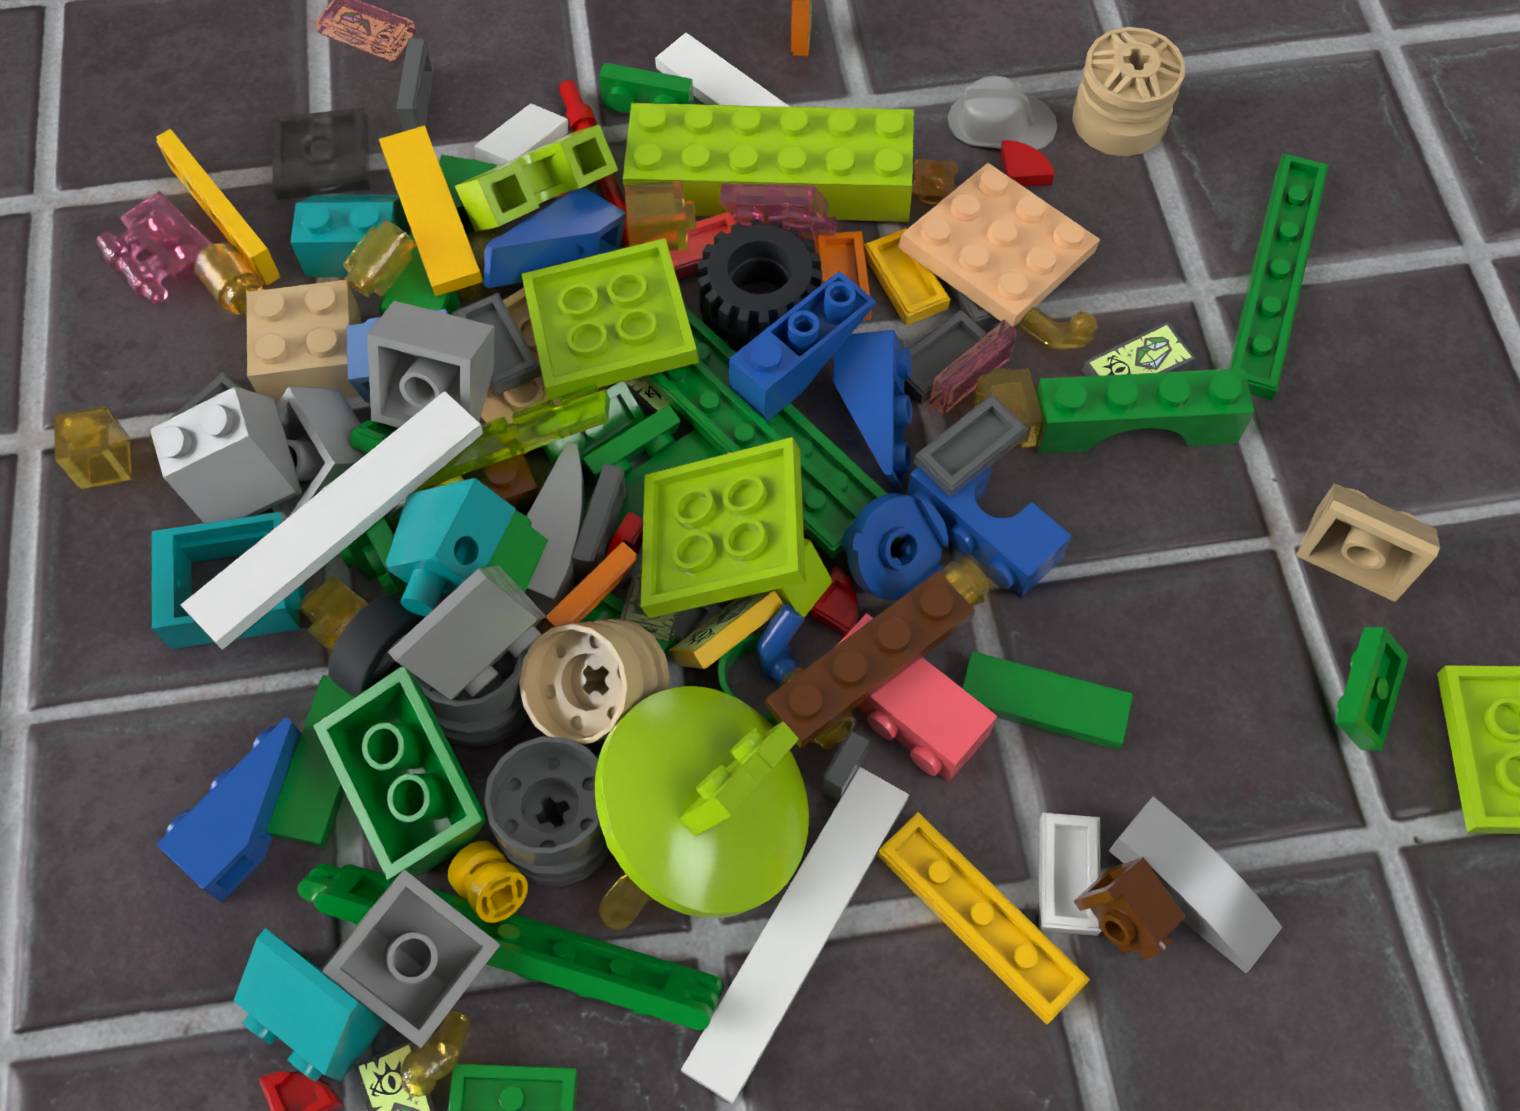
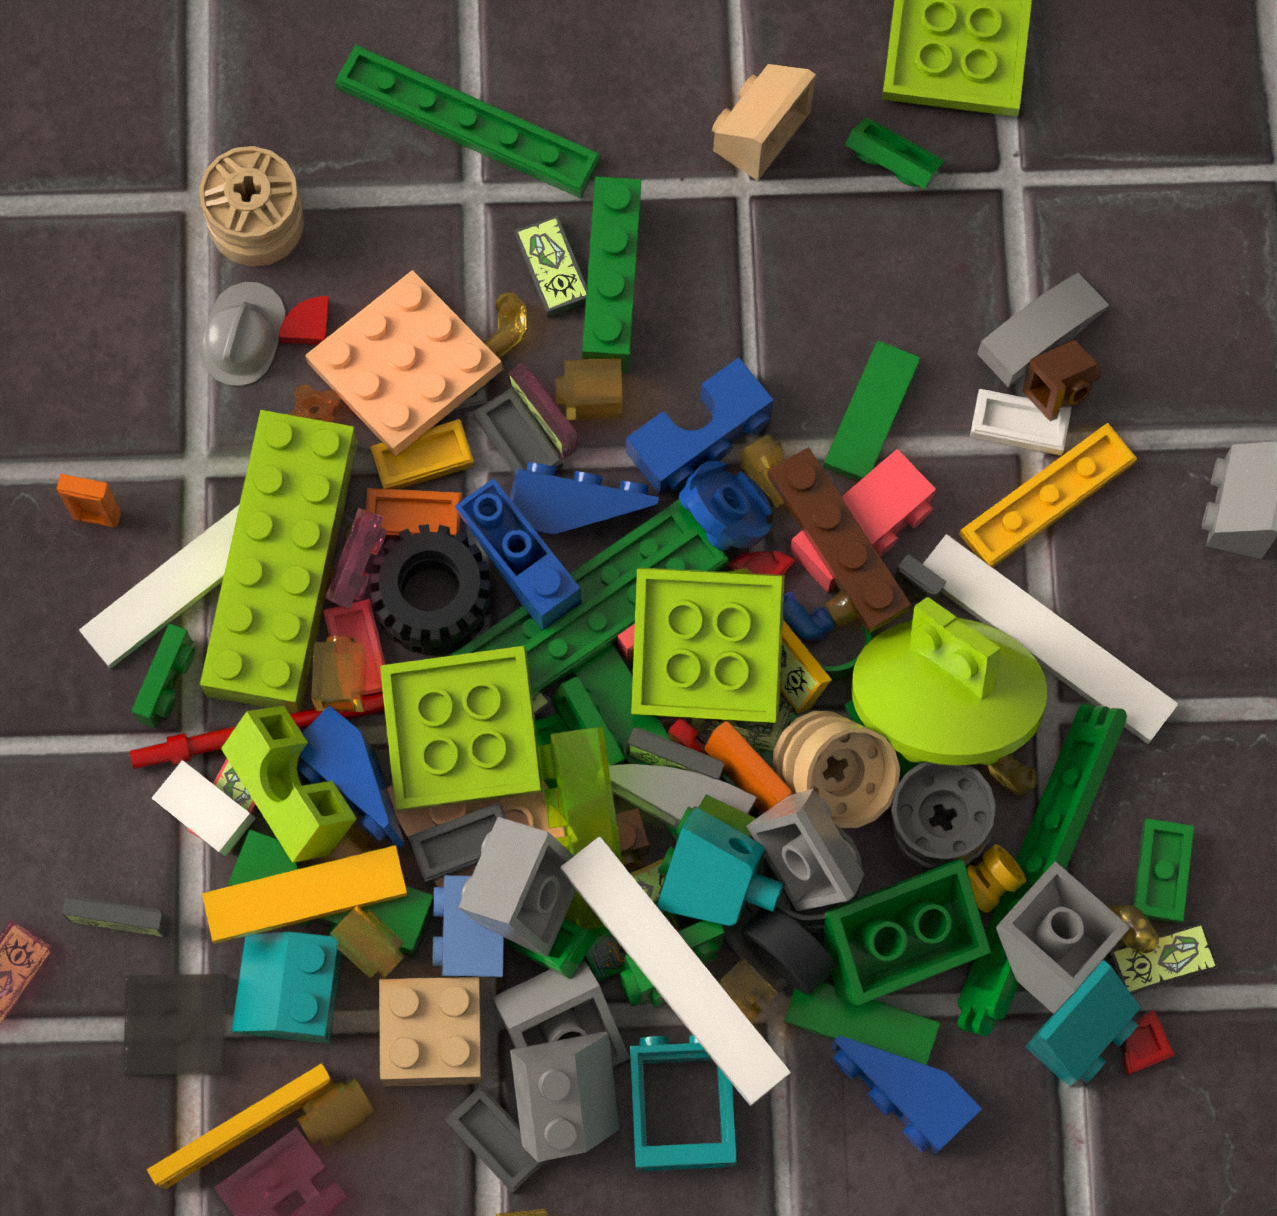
camera: 85 degrees left, 10 degrees up
(971, 445) = (643, 423): dark grey tile -> none

